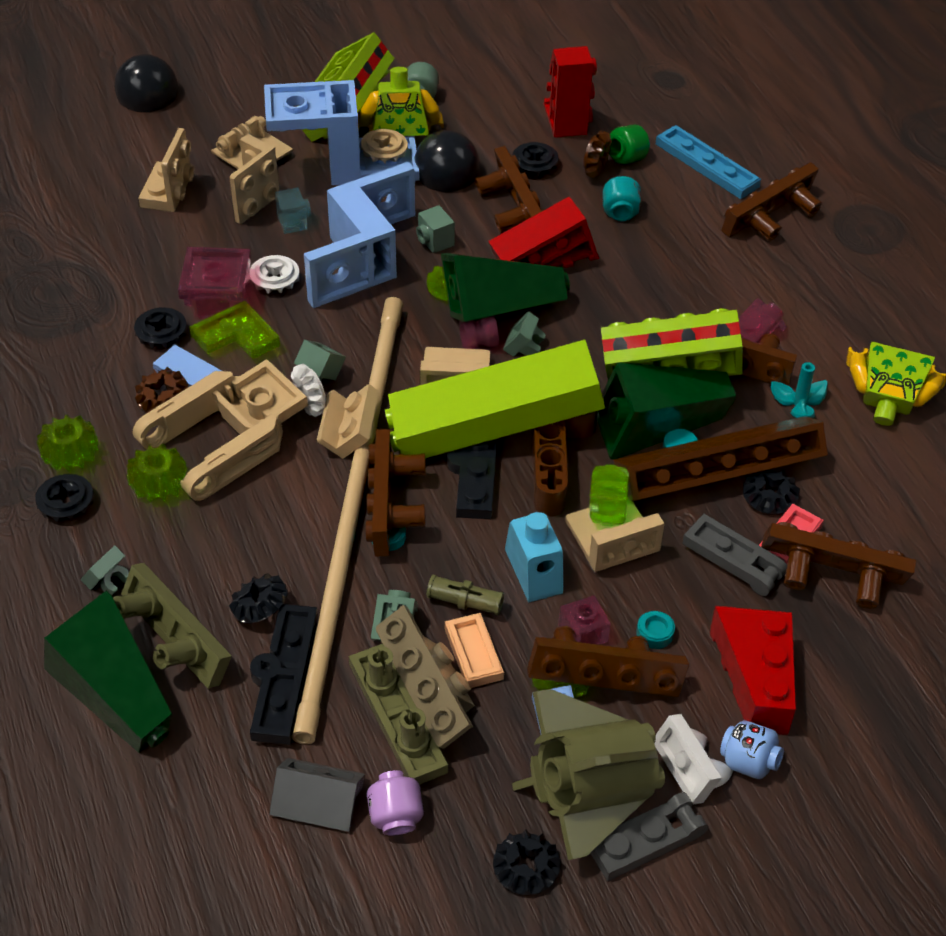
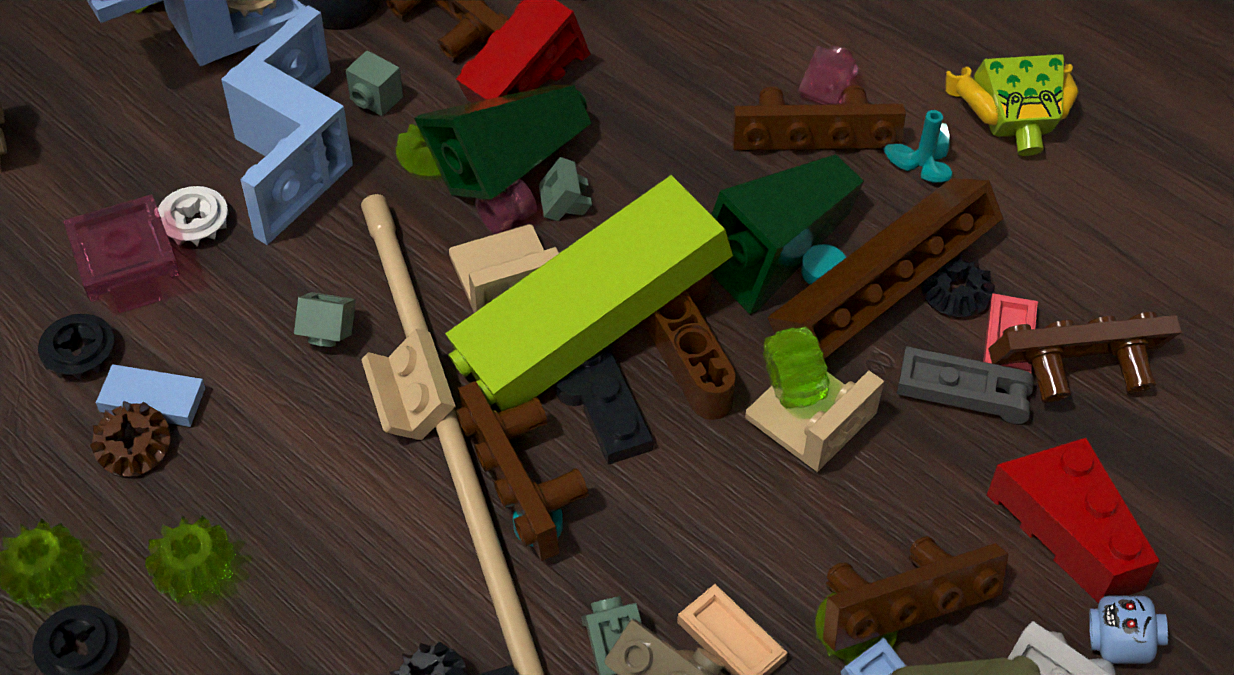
camera: 25 degrees left, 5 degrees up
(229, 147) = (63, 48): tan hinge -> none
(236, 324) = (186, 304): clear neon green plate -> none
(250, 403) = (269, 410): tan plate -> none
(256, 181) = (102, 89): tan bracket -> none
(292, 210) = (170, 118): clear light blue plate -> none
(309, 384) = (336, 364): white gear -> none
(465, 595) = (684, 567): olive pin -> none
(533, 543) = (746, 482): medium azure torso -> none
(586, 620) = (847, 540): clear pink plate -> none
(656, 628) = (928, 516): teal tile -> none
(687, 341) = (780, 137): lime brick -> none

